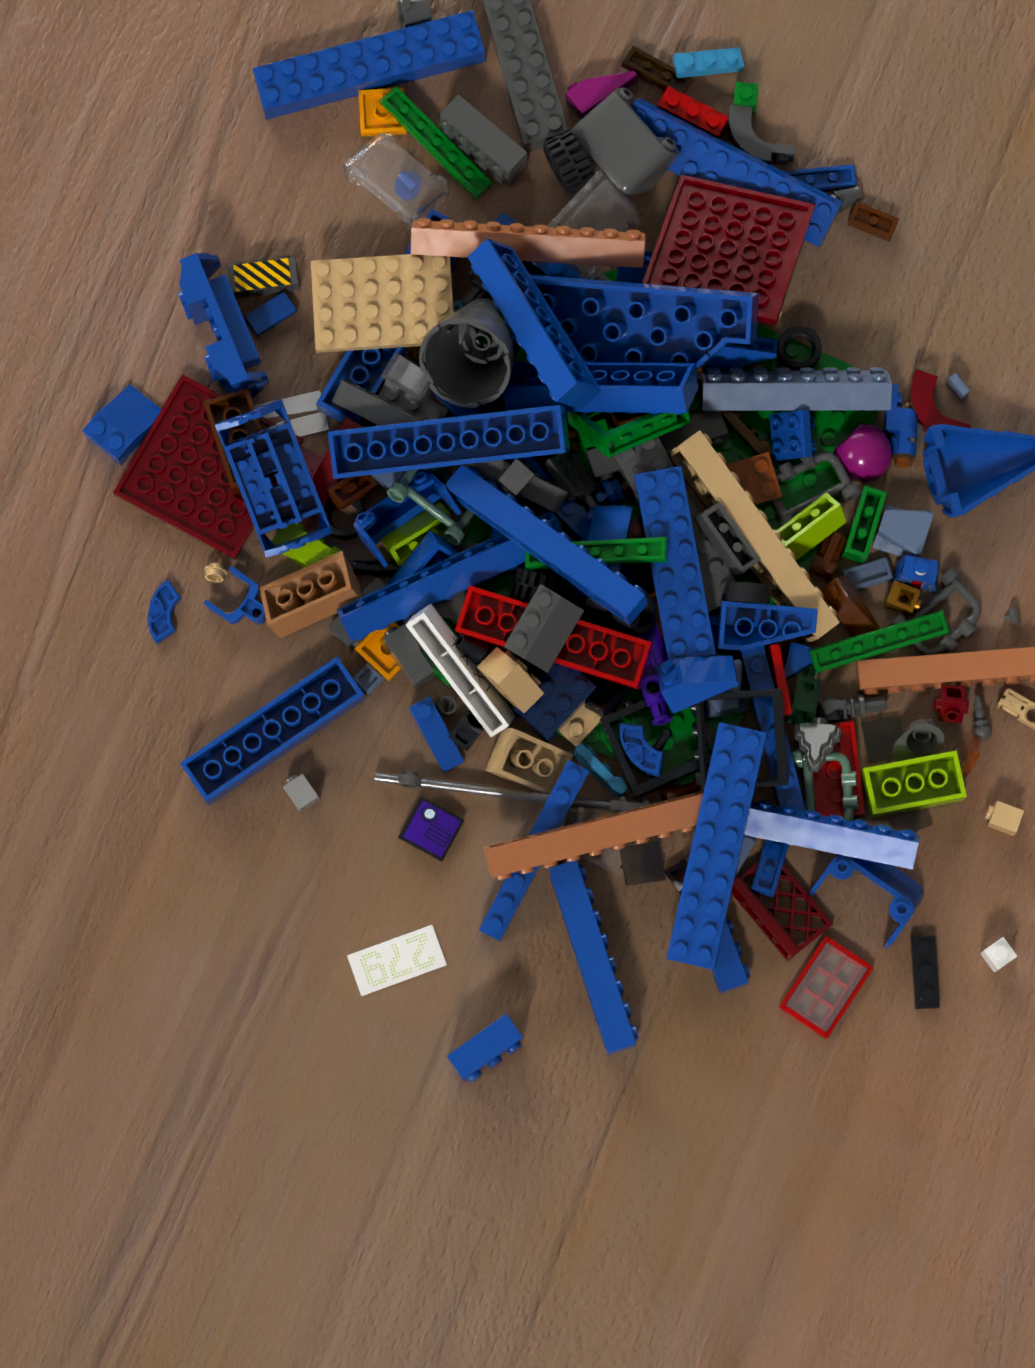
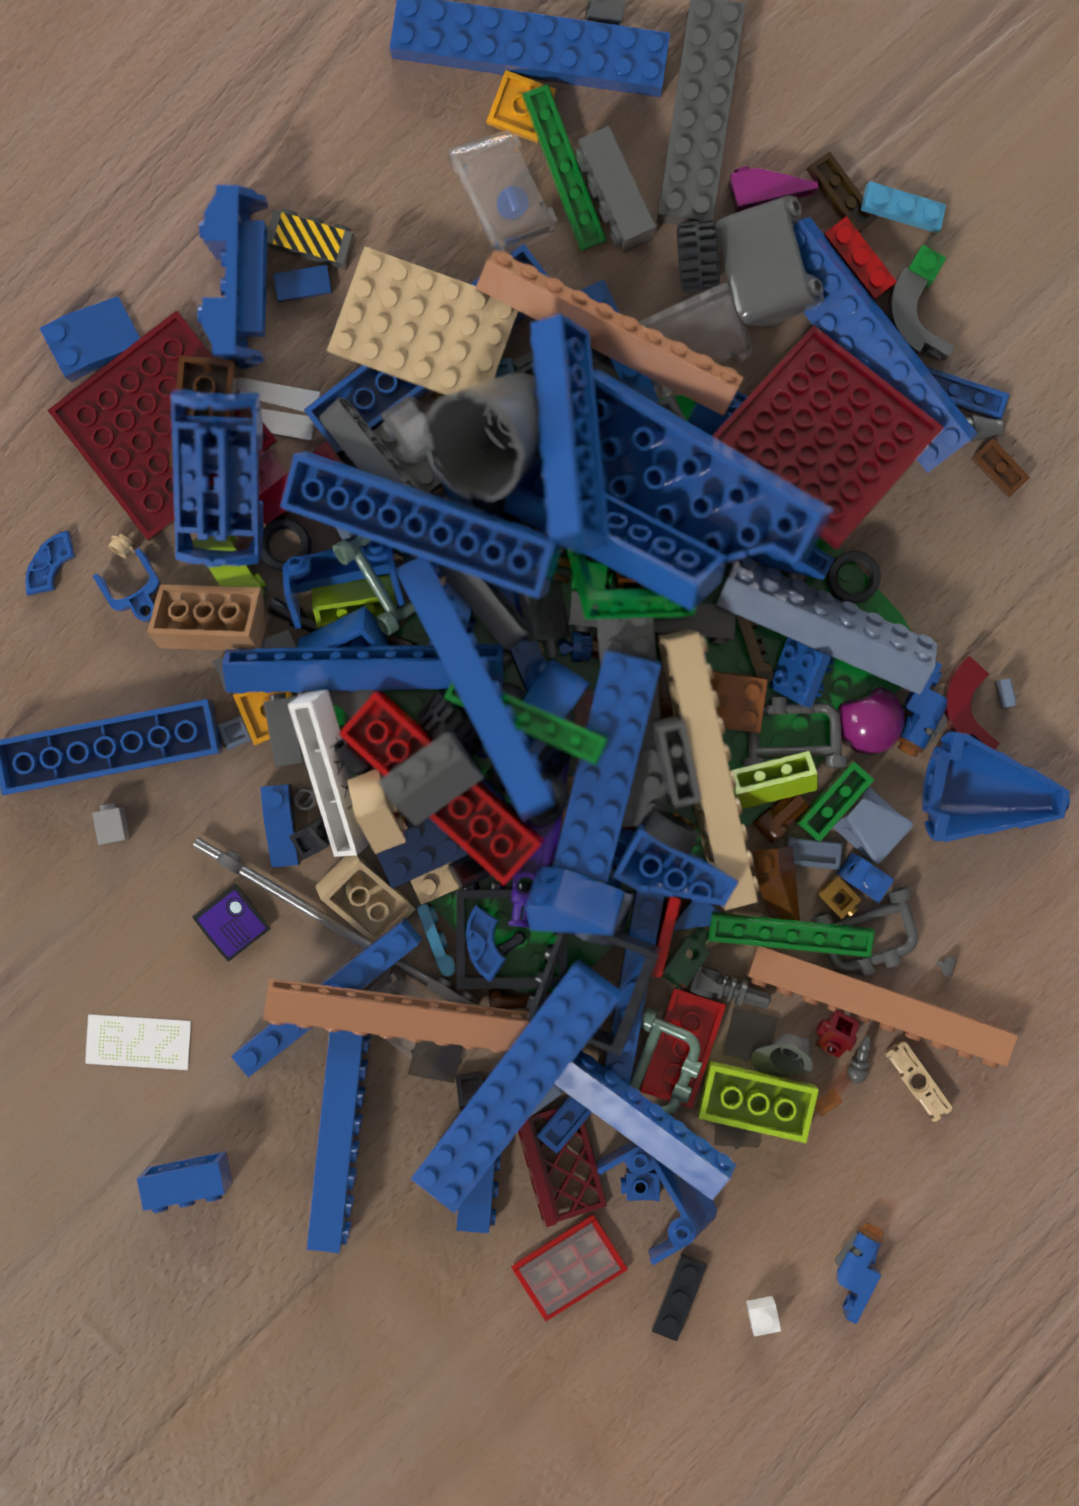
camera: 20 degrees right, 10 degrees up
(350, 490) = (293, 525): reddish brown plate -> none
(517, 477) = (478, 596): dark grey brick -> none
(816, 741) = (674, 1015): dark grey rock -> none
(861, 888) = (651, 1182): none -> blue brick
(1004, 817) = (836, 1176): tan brick -> none

